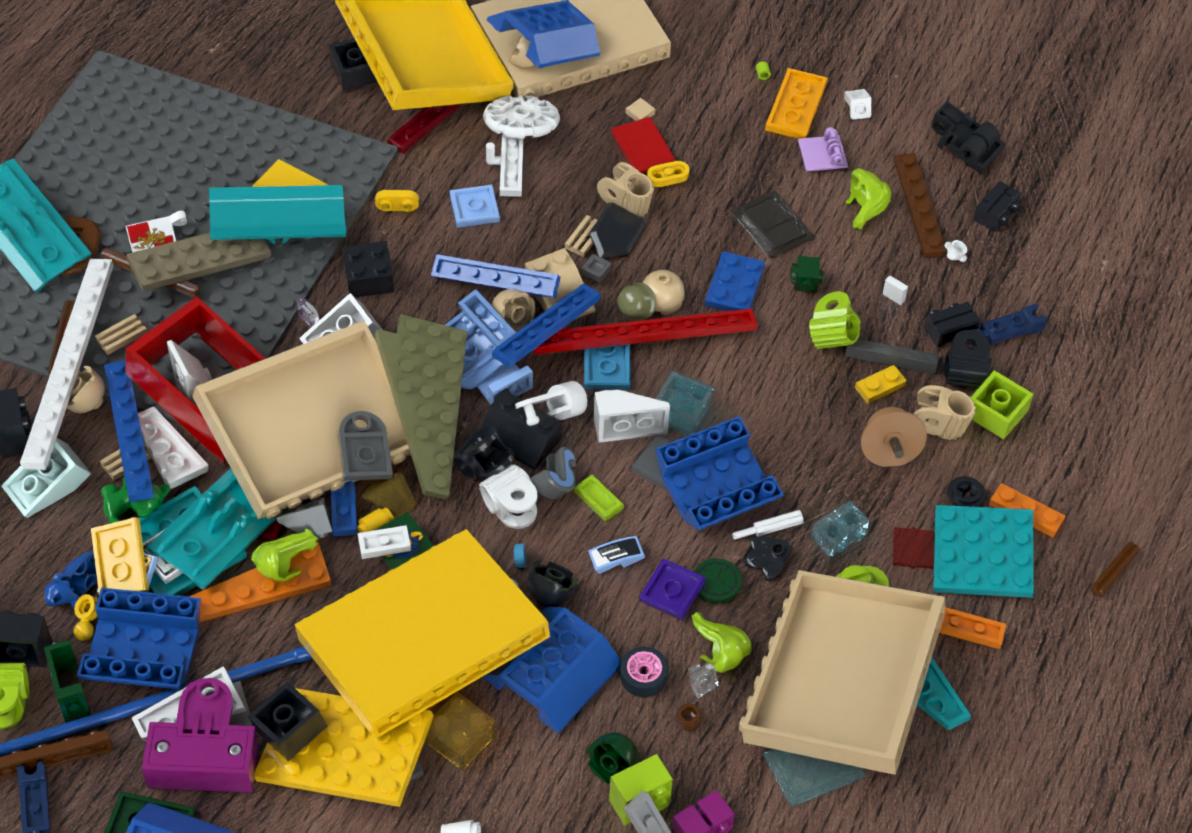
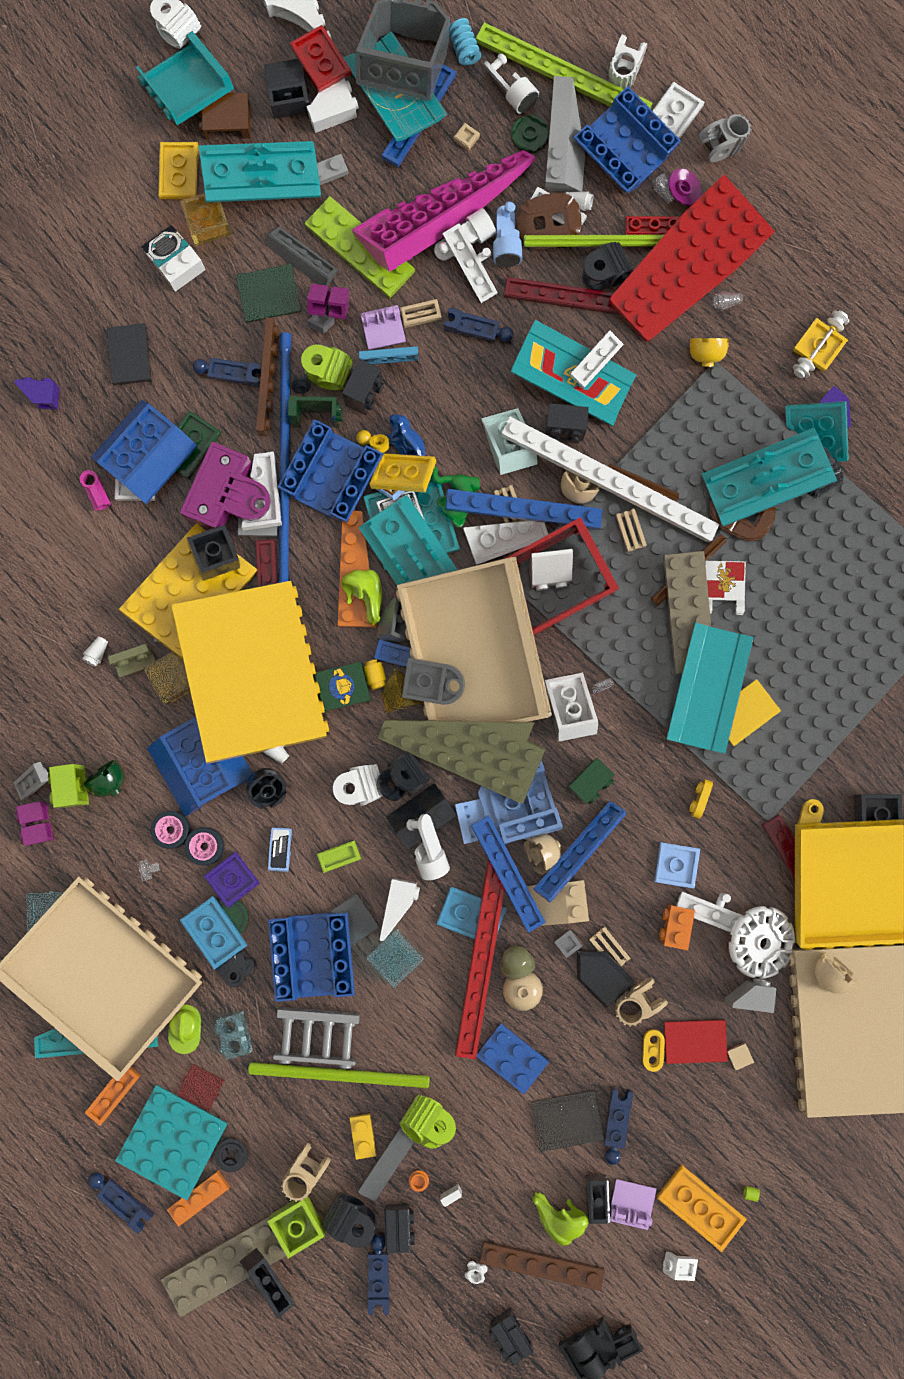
camera: 115 degrees right, 30 degrees up
(33, 717) = (301, 384): none -> black plate
(298, 675) = (266, 562): none -> dark red tile
(368, 269) = (631, 749): black brick -> none
(380, 117) = (807, 816): none -> yellow plate
(384, 542) = (343, 671): white plate -> none
(417, 288) = (591, 781): none -> dark green brick
(455, 782) = (132, 660): none -> olive bracket
(520, 555) = (305, 774): dark azure tile -> none
(537, 185) = (677, 927): none -> orange bracket
(555, 32) = (843, 1001): blue slope -> none
(559, 475) = (363, 831): dark grey animal -> none
(577, 107) = (753, 995): none -> light grey slope
(652, 620) = (199, 855): none -> wheel
(689, 716) = (121, 848): reddish brown tile -> none
(729, 643) = (166, 902): lime piece -> none
(739, 585) = (213, 932): none -> dark azure tile
(751, 182) = (617, 1124): none -> dark blue plate
(771, 525) = (261, 982): white axle -> none
(785, 466) = (328, 1019): none -> light grey fence
(806, 274) = (495, 1124): dark green brick -> none
(830, 173) = (597, 1198): none -> black brick
(832, 426) = (338, 1075): none -> lime axle
(893, 437) = (296, 1117): medium nougat piece -> none
(897, 322) = (418, 1180): none -> orange plate
(1068, 407) = (267, 1283): none -> black brick
(1072, 579) = (120, 1201): none -> dark blue plate
(1079, 463) = (220, 1267): none -> dark tan plate
(1115, 568) = (118, 1242): reddish brown axle -> none

